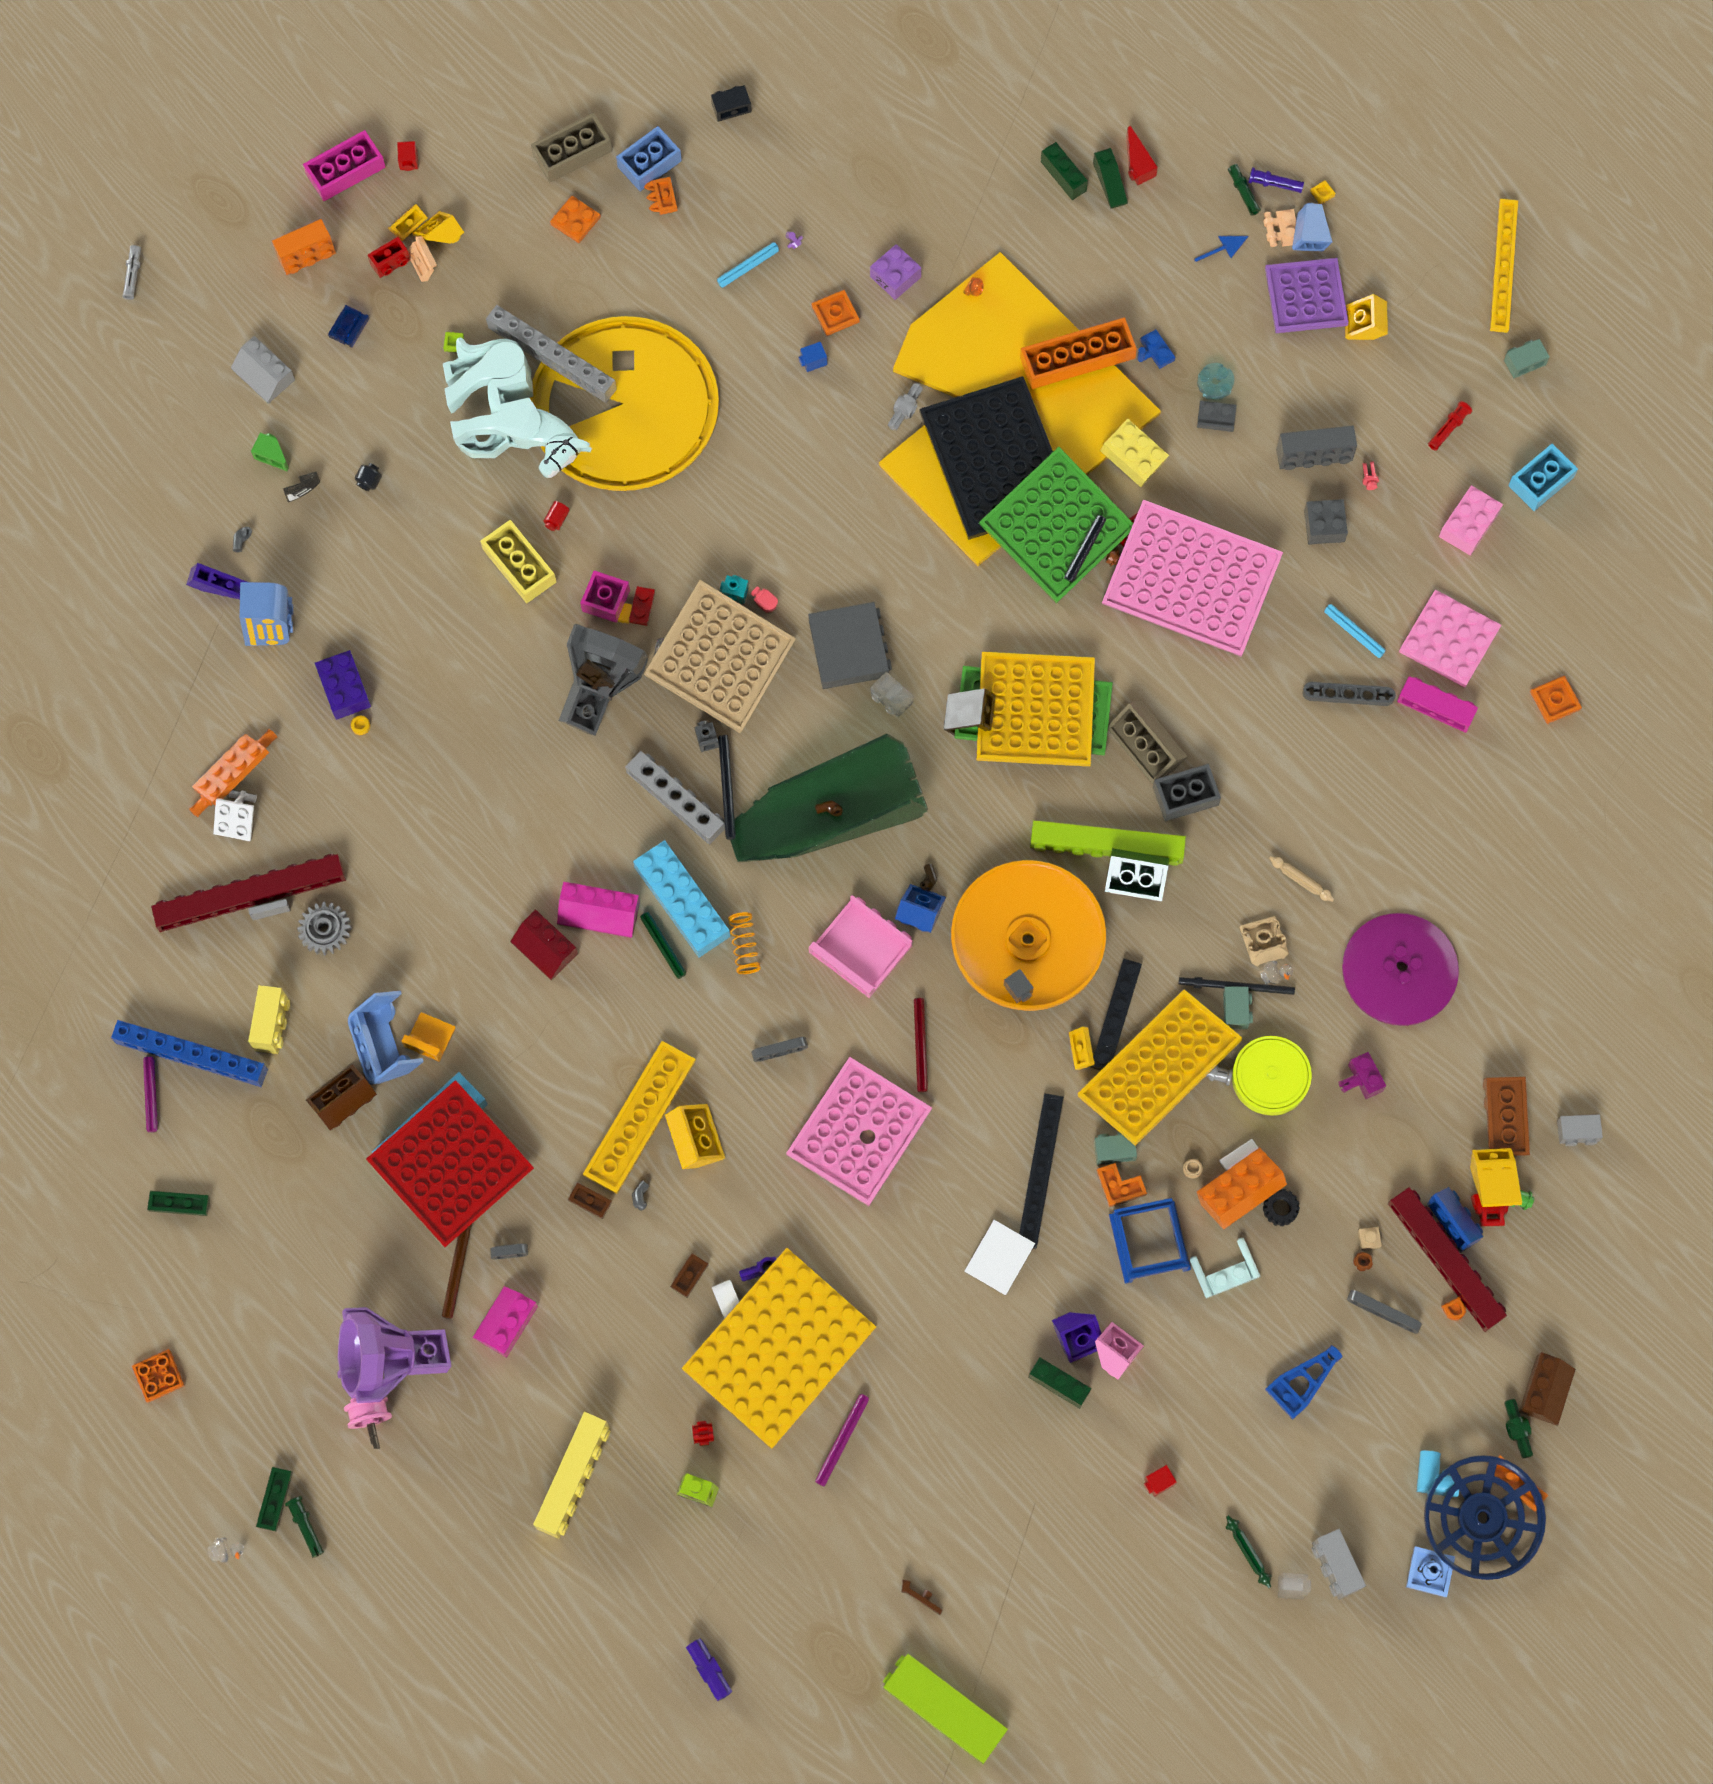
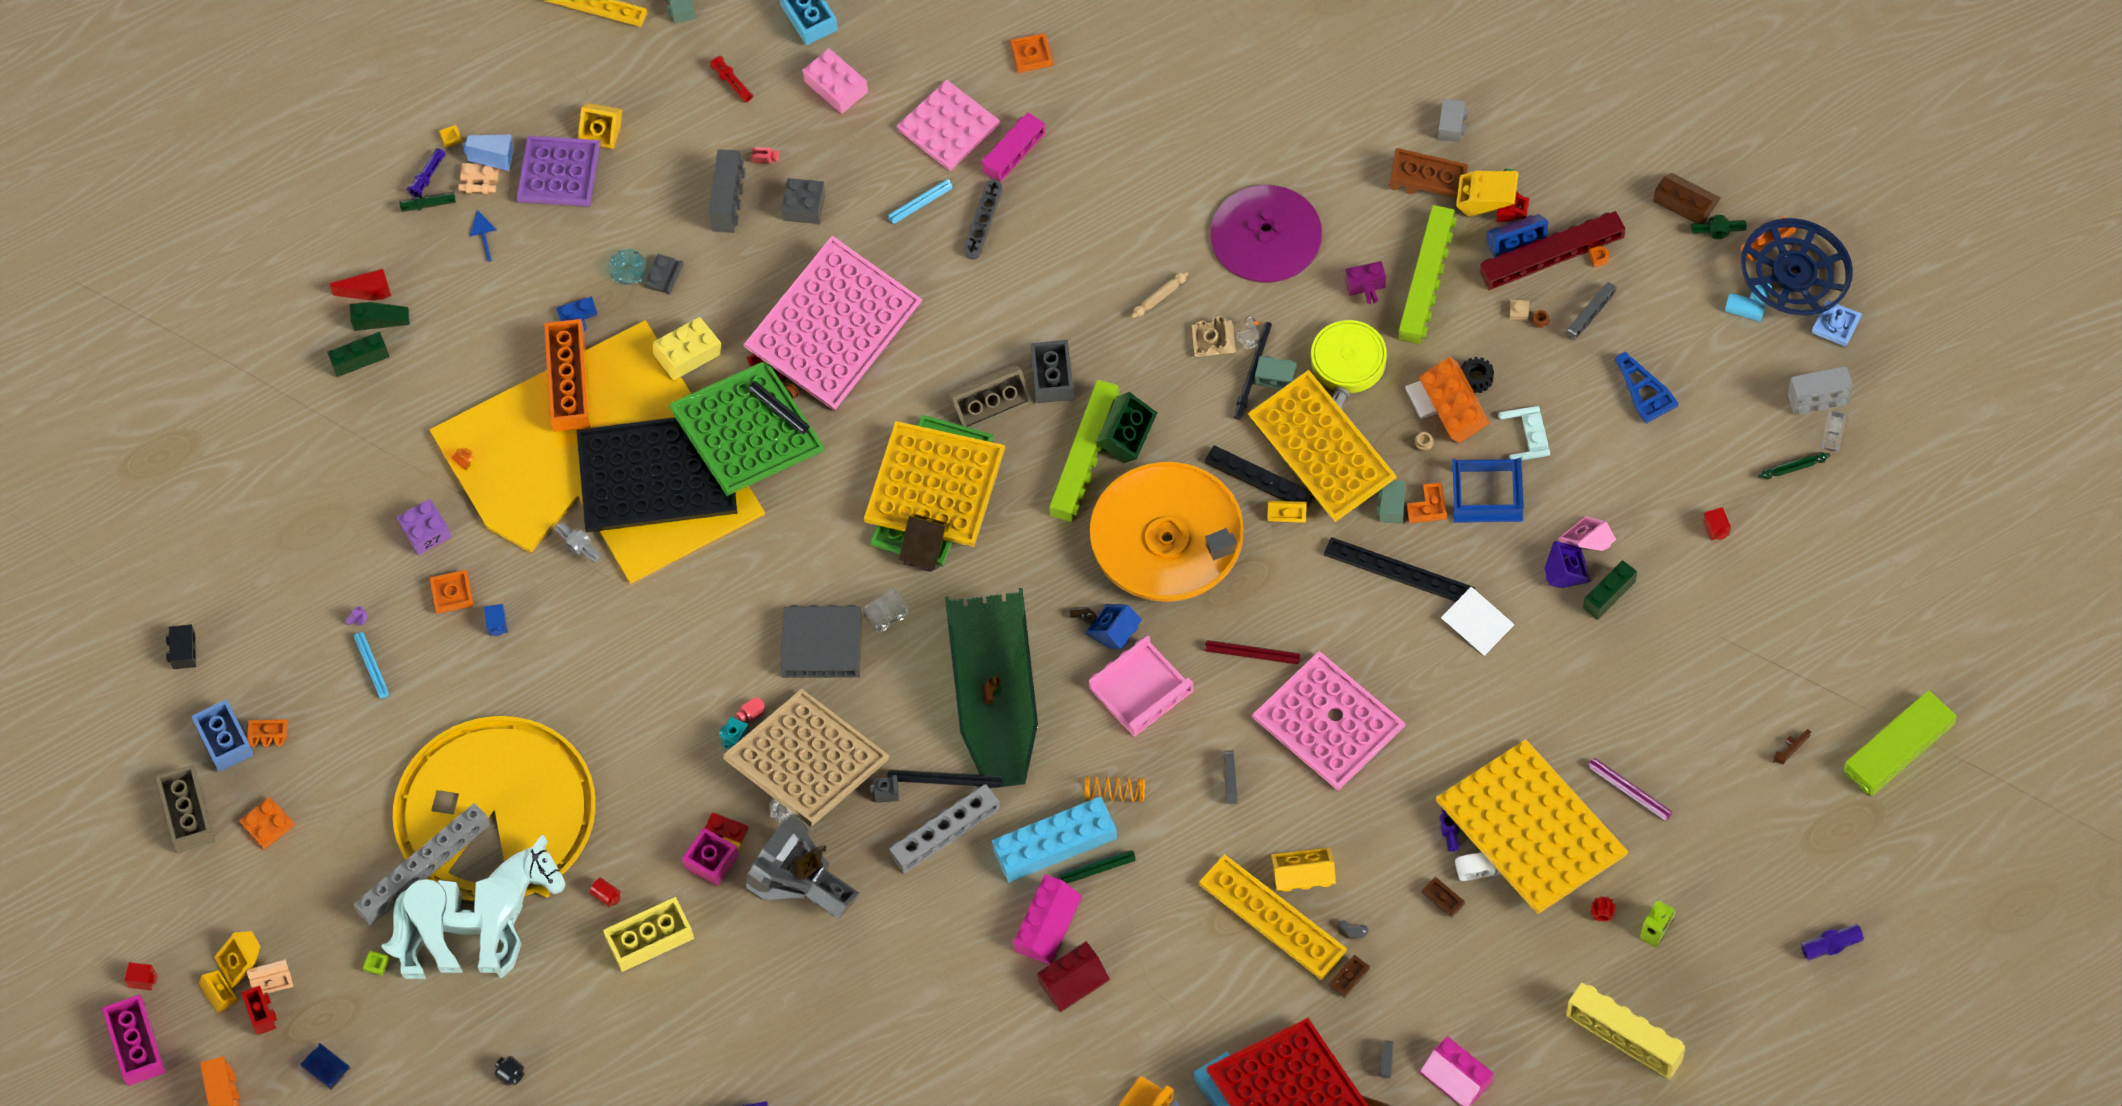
camera: 75 degrees left, 10 degrees down
(1387, 1136) = (1426, 275): none -> lime brick

